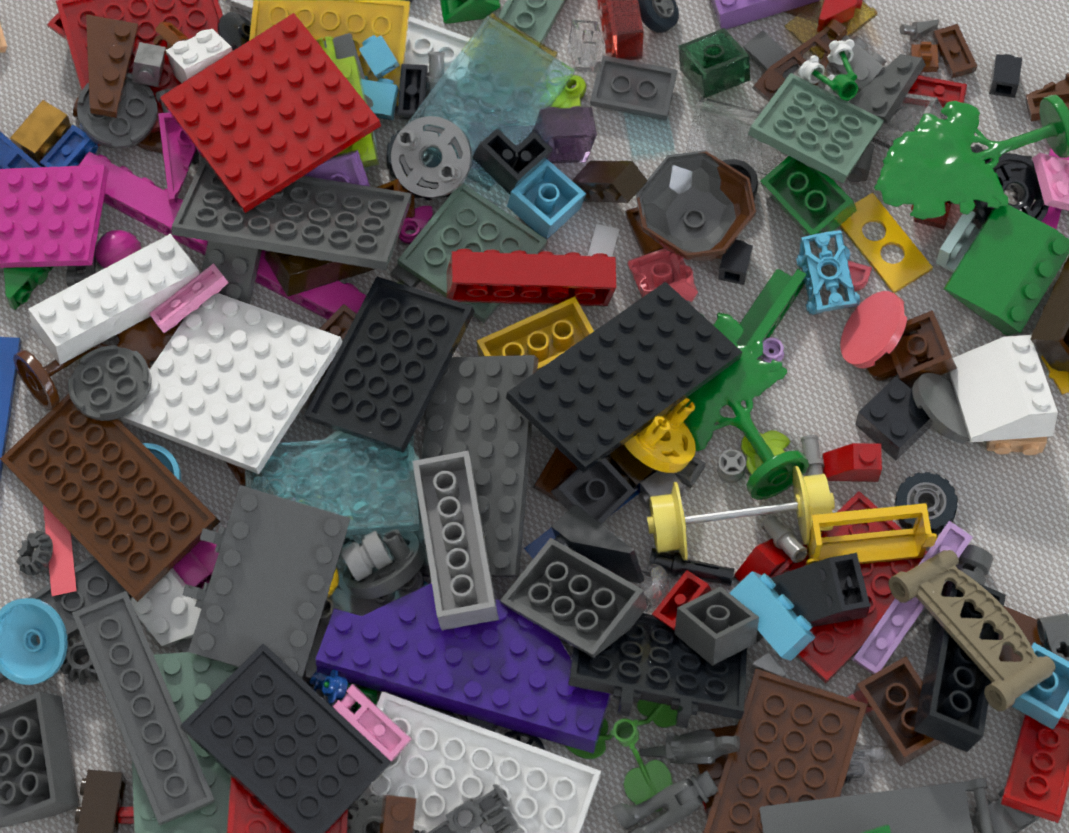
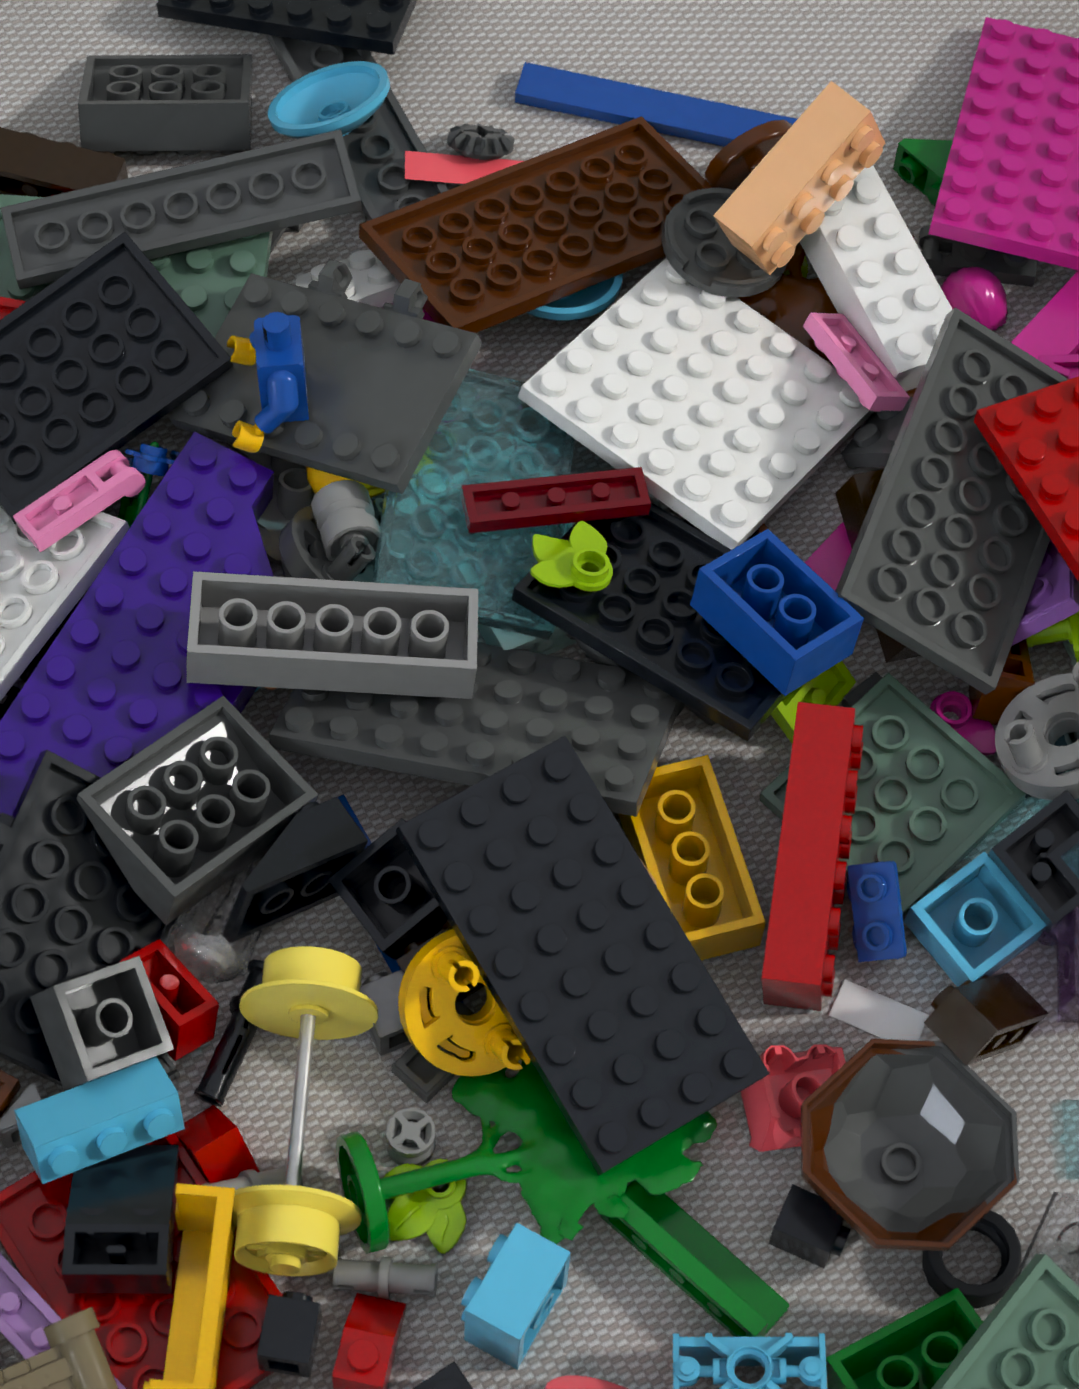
camera: 95 degrees right, 5 degrees down
(87, 322) = (801, 178): none -> light nougat brick
(279, 600) = (281, 373): none -> blue torso
(334, 437) = (555, 500): none -> dark red plate
(375, 423) = (574, 562): none -> lime plate
(396, 300) = (776, 611): none -> blue brick
(556, 240) = (876, 911): none -> blue bracket
(774, 344) = (622, 1242): lavender plate -> none
(813, 390) = (516, 1294): none -> medium azure brick
(863, 493) = (289, 1334): none -> black brick

